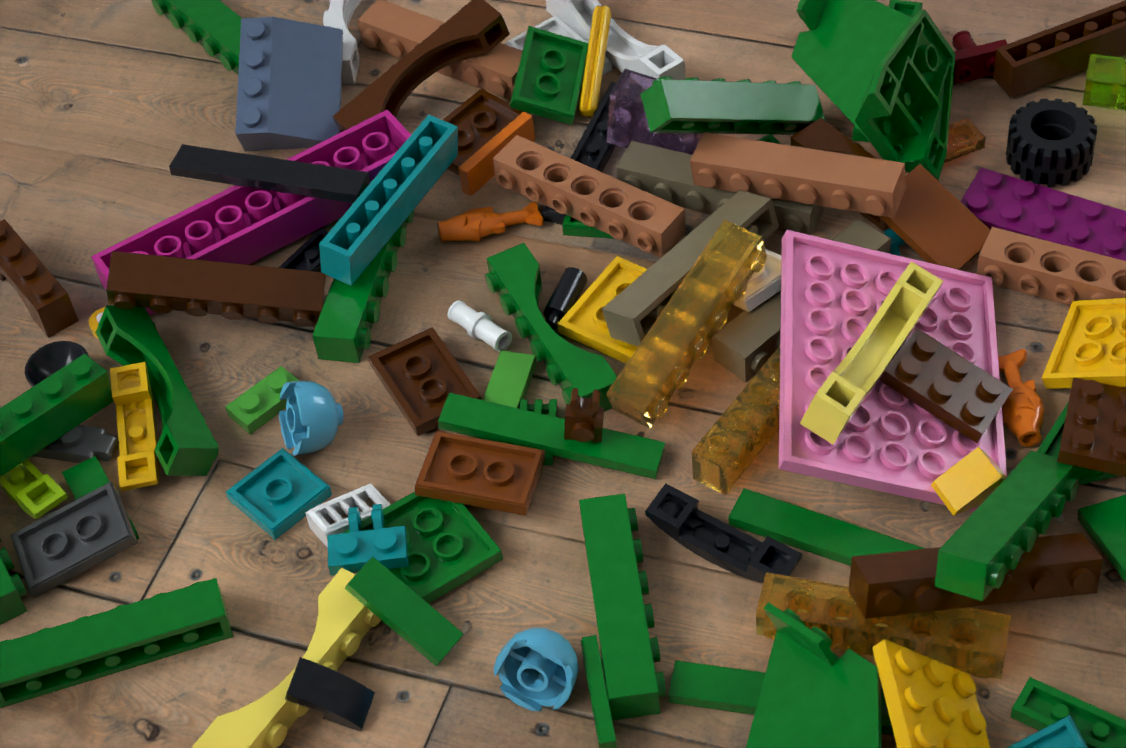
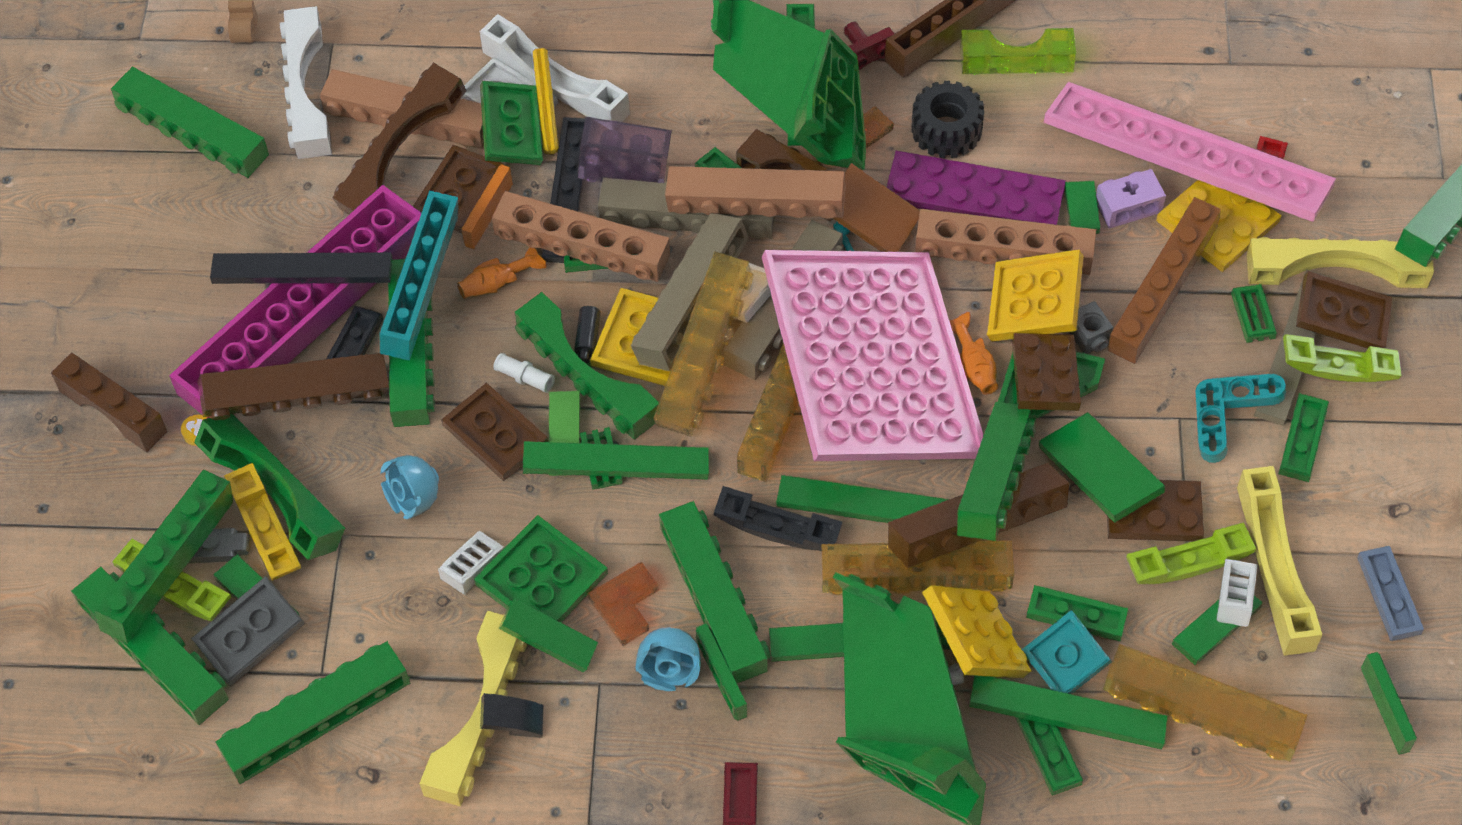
camera: 20 degrees left, 10 degrees up
(51, 359) = (167, 474): black piece -> none
(260, 402) = (362, 474): bright green plate -> none
(278, 493) = (404, 554): teal tile -> none
(287, 83) = (282, 172): sand blue slope -> none
(356, 547) = (499, 590): teal hinge -> none
(480, 473) = (569, 505): dark orange tile -> none
(506, 588) = (617, 602): none -> clear orange plate
(584, 418) = (644, 444): reddish brown plate -> none
(730, 106) = (686, 138): green brick -> none
(871, 354) = (853, 374): light yellow arch -> none
(946, 385) = (919, 359): reddish brown plate -> none
(968, 482) = (957, 439): yellow slope -> none

